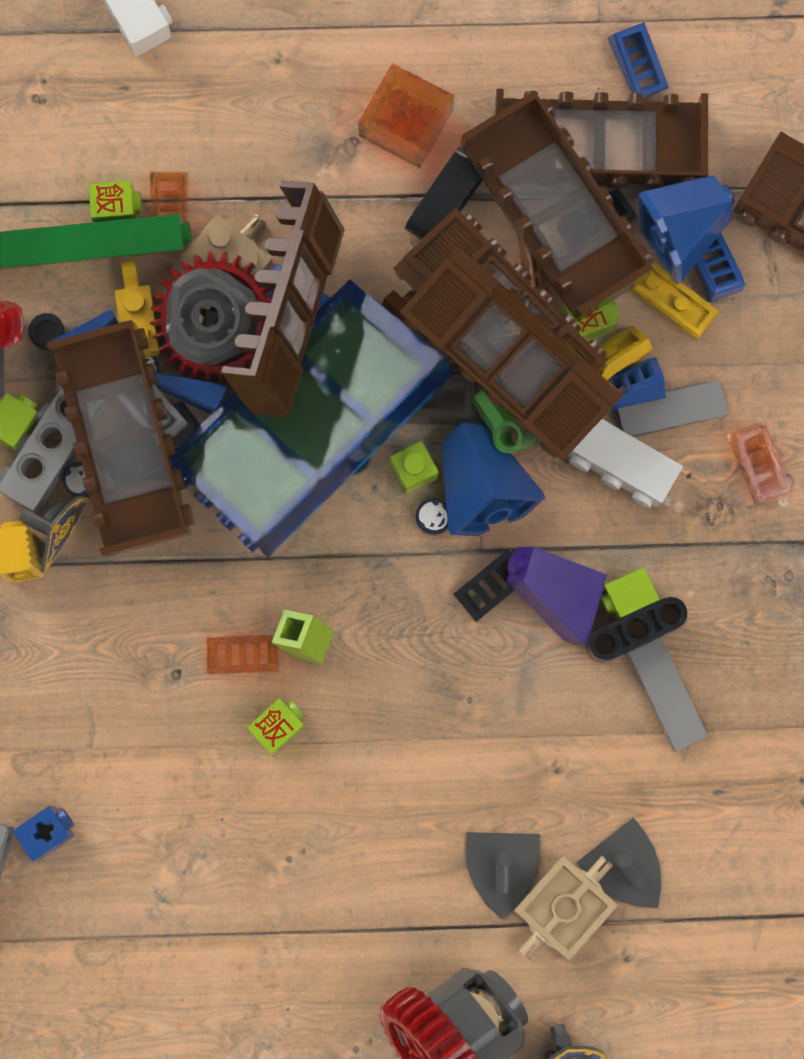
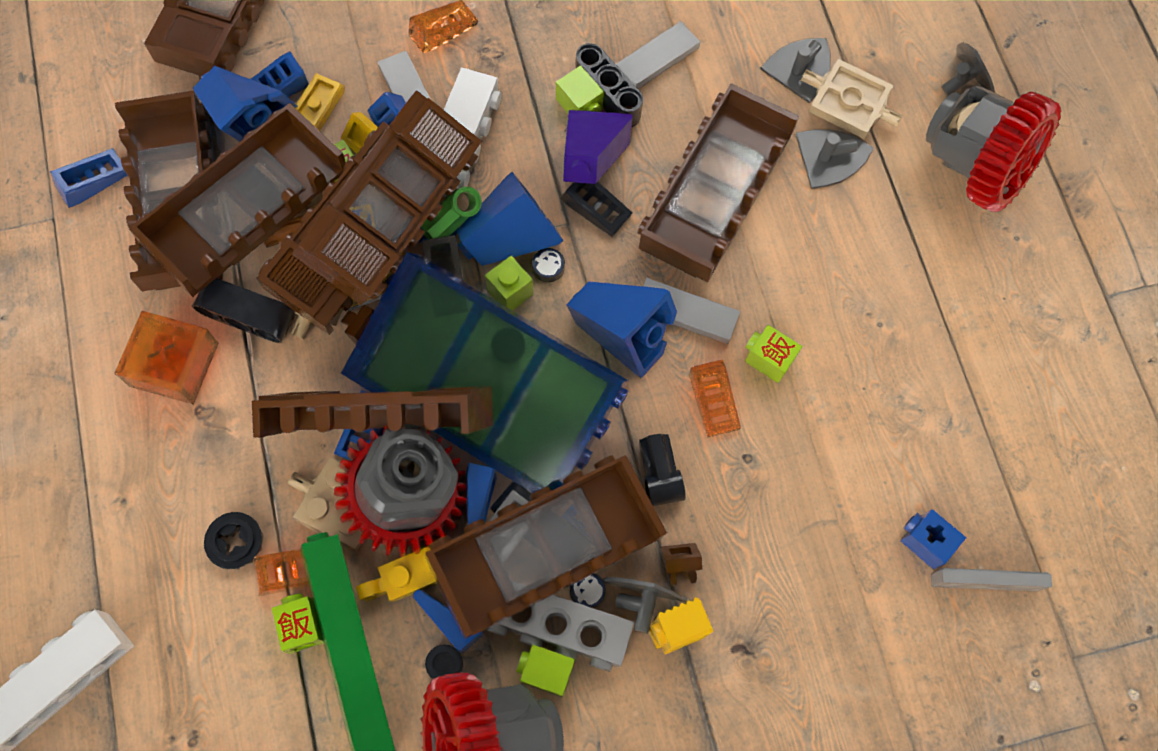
camera: 105 degrees left, 10 degrees down
(85, 575) = (681, 559): none -> reddish brown tile
(169, 577) = (662, 480): none -> black piece
(207, 141) = (227, 525): none -> black gear
(302, 636) = (688, 344): lime brick -> none
(343, 576) = (625, 321): none -> blue slope
(348, 651) = (700, 313): none -> light grey tile
(490, 722) = (716, 182): none -> reddish brown window

